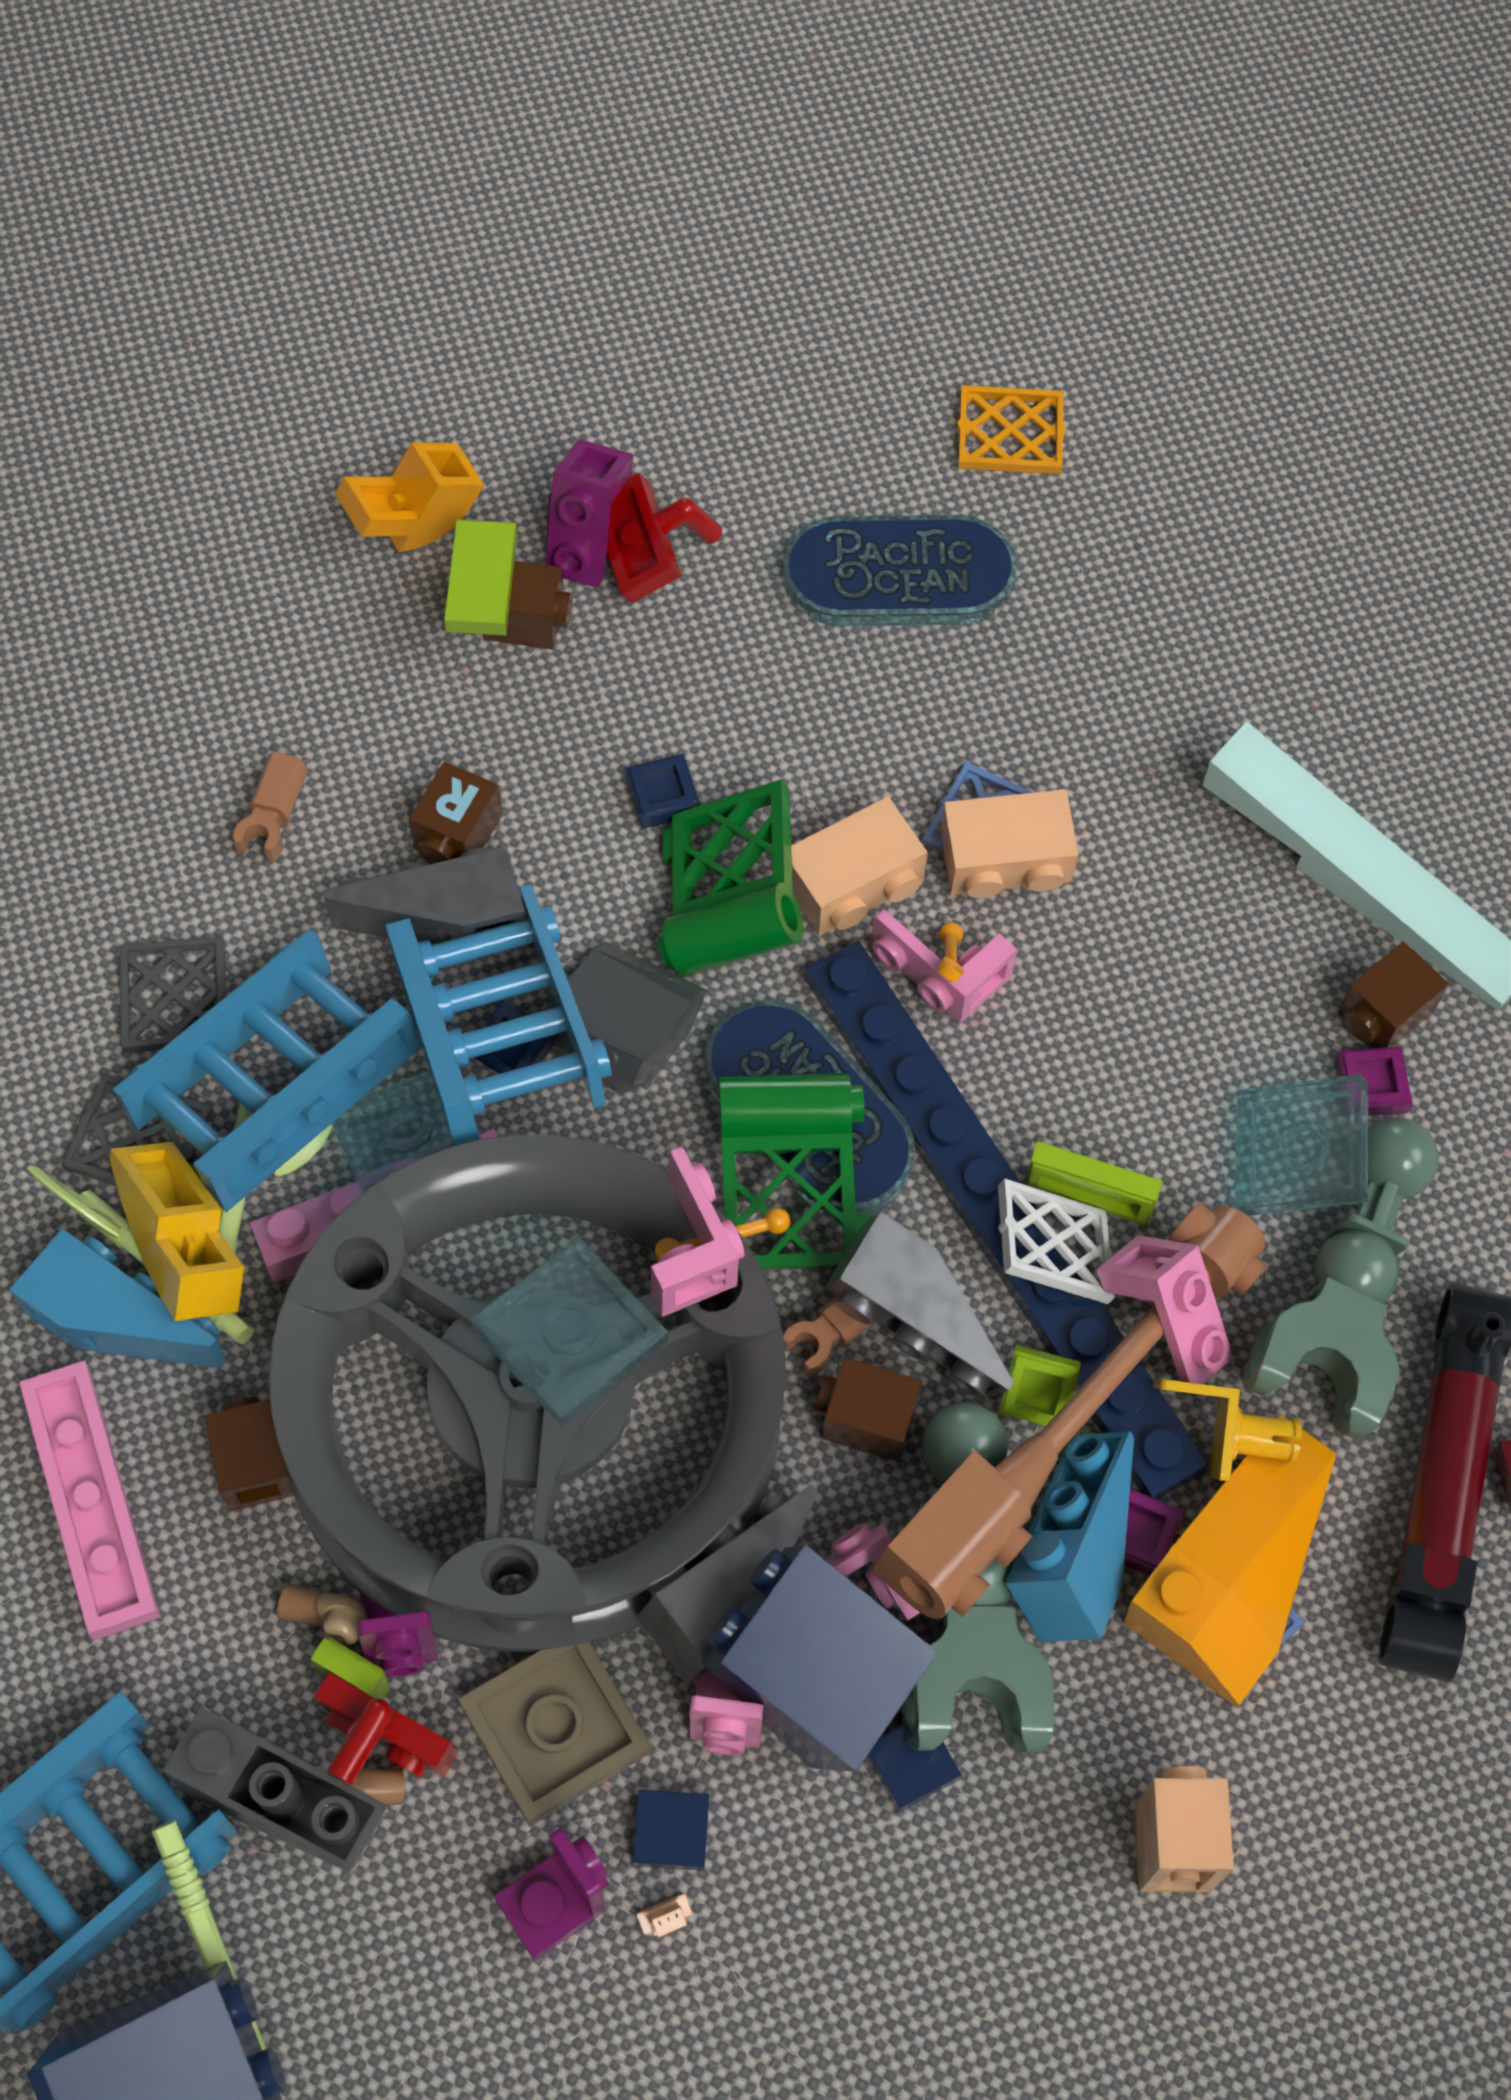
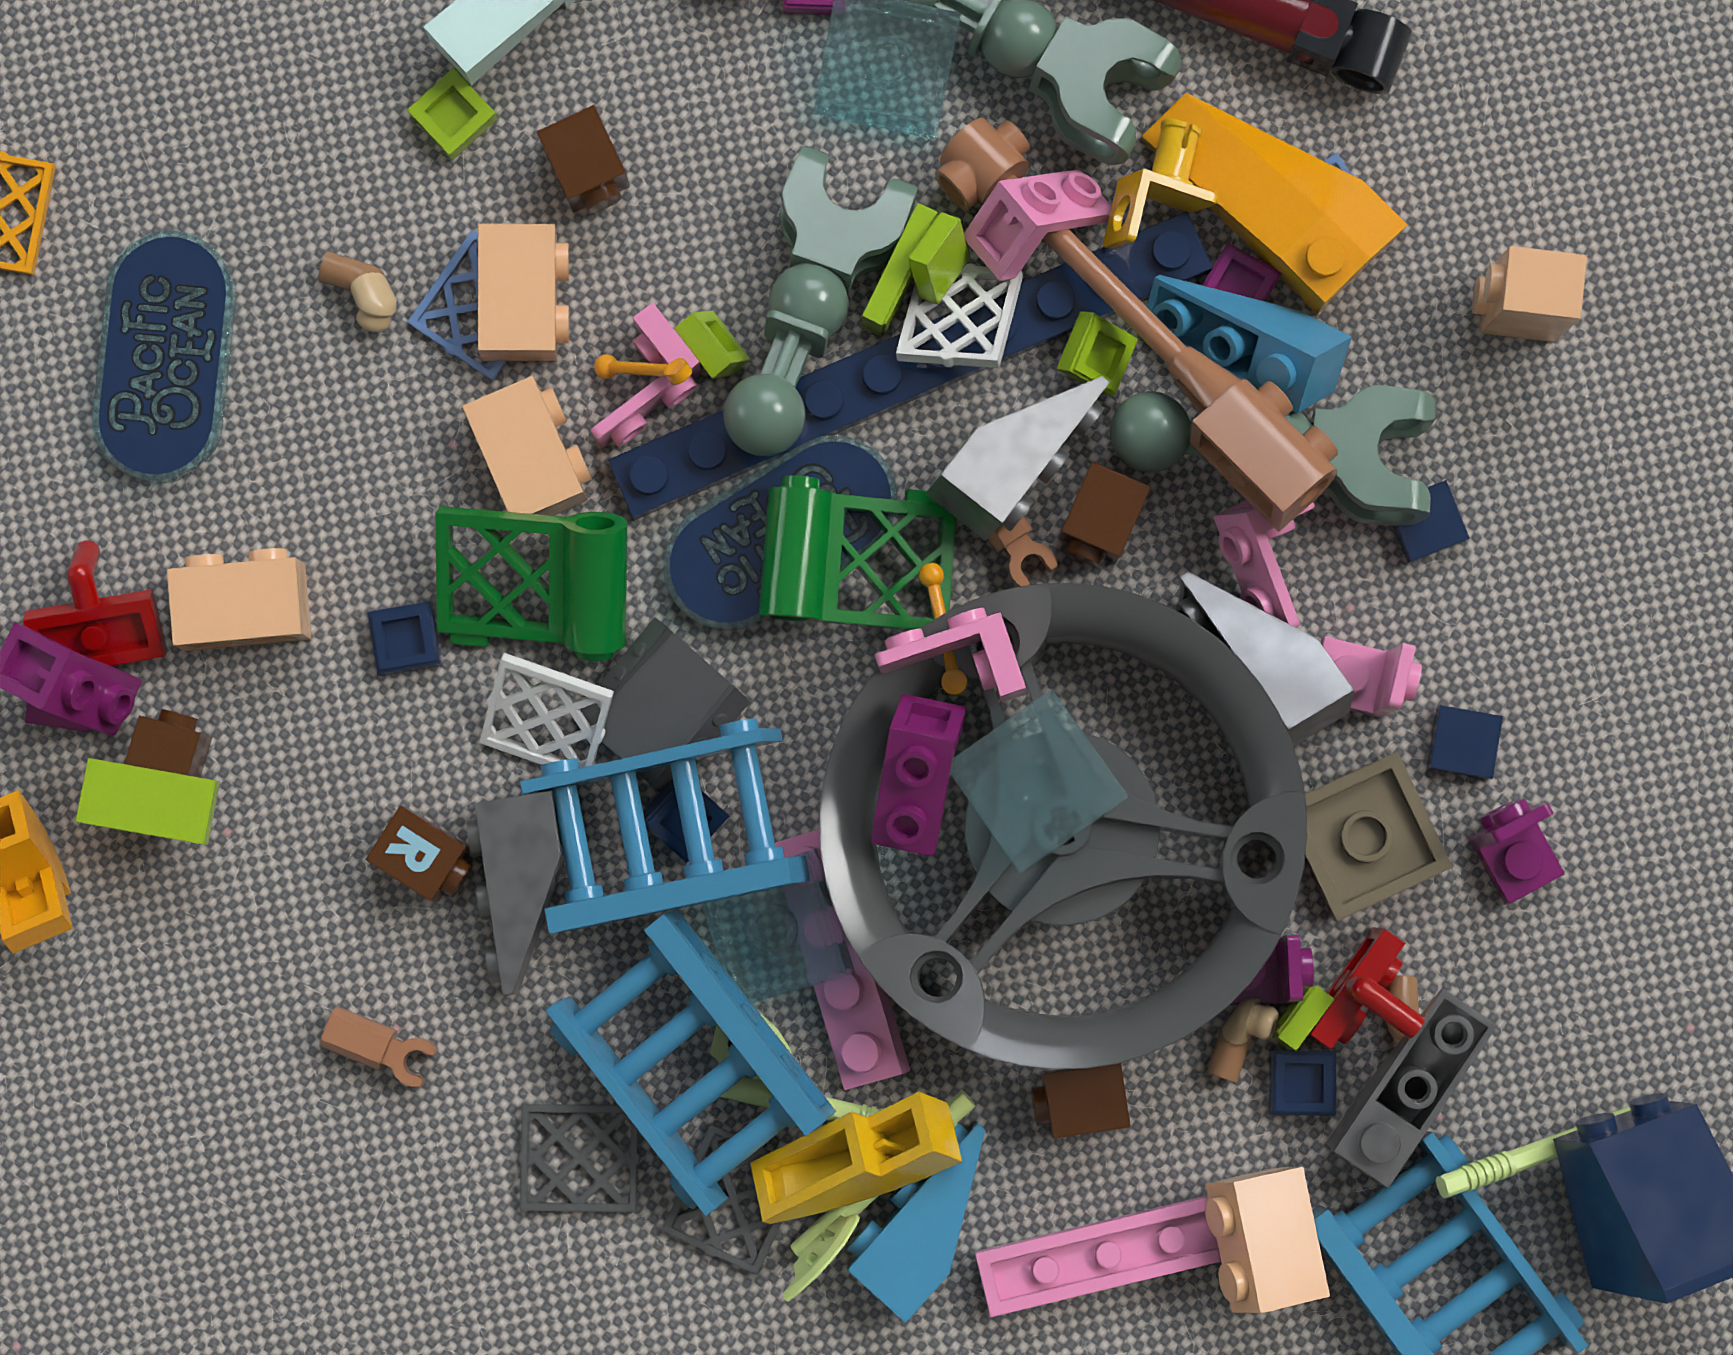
camera: 85 degrees left, 20 degrees up
(101, 1648) = (1266, 1240): none -> light nougat brick
(281, 1690) = (1302, 1082): none -> dark blue tile
(567, 1200) = (916, 774): none -> magenta bracket
(627, 912) = (561, 683): none -> white window
(665, 1916) = (1538, 755): light nougat piece -> none
(679, 647) = (238, 601): none -> light nougat brick
(817, 1658) = (1362, 589): slope -> none
(987, 1017) = (712, 344): none -> lime tile
(992, 722) = (367, 286): none -> tan arm
(1043, 1094) = (811, 296): none -> sand green piece
(1110, 1211) = (939, 257): none -> lime tile
(1148, 886) = (584, 161): none -> reddish brown brick
(1170, 777) = (452, 114): none -> lime tile

